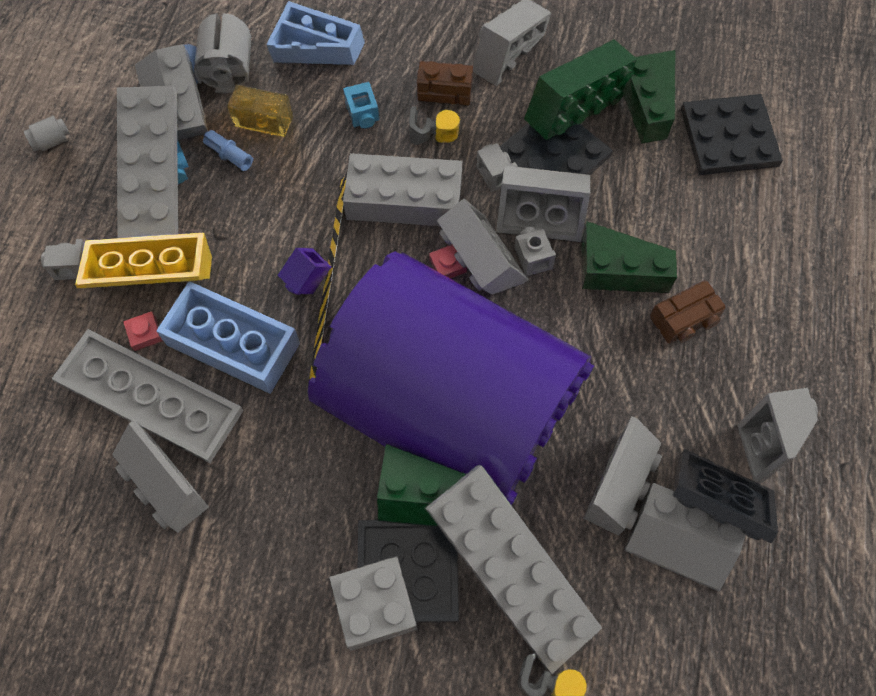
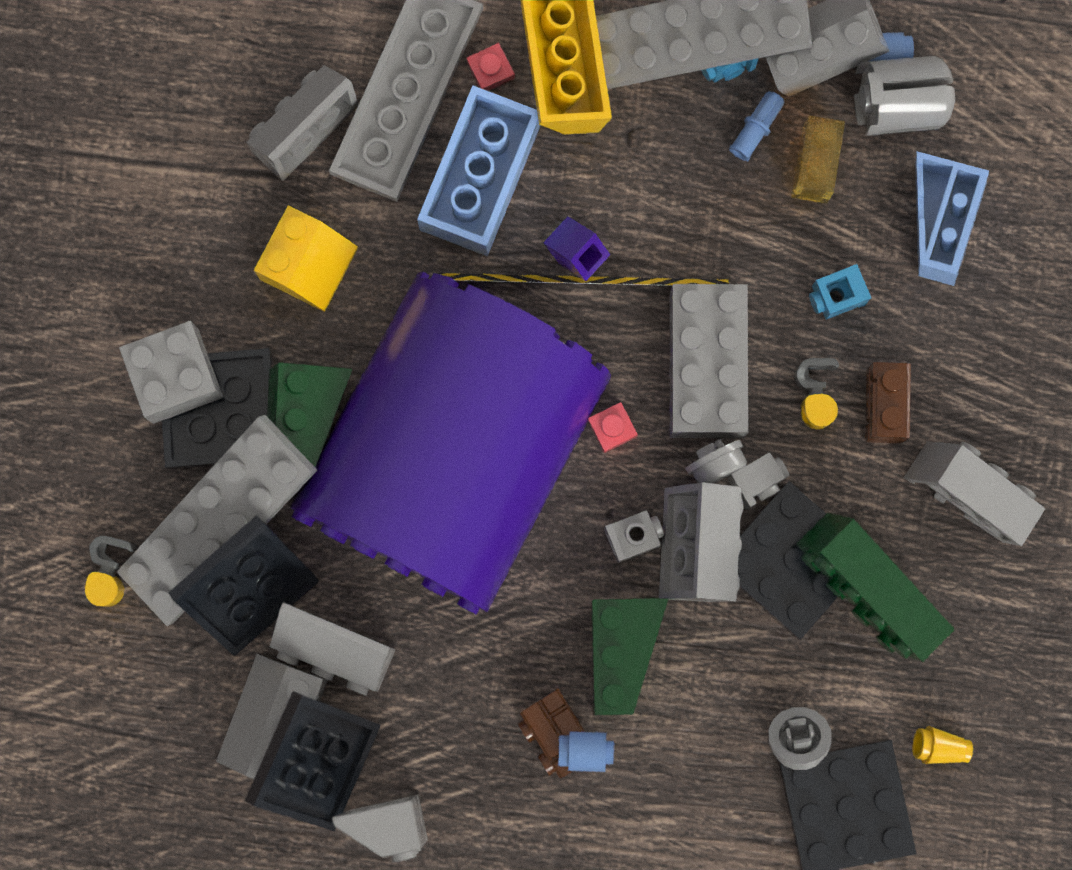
camera: 85 degrees right, 15 degrees up
(281, 486) = (305, 258): none -> yellow slope
(480, 249) = (624, 467): light grey slope -> none
(482, 187) = (717, 462): none -> light grey piece
(572, 545) = (243, 586): none -> black plate
(652, 95) = (897, 692): dark green wedge -> none
(686, 151) = (799, 738): none -> light grey piece
(687, 75) = (938, 746): none -> yellow cone
(708, 281) = (585, 751): none -> medium blue brick

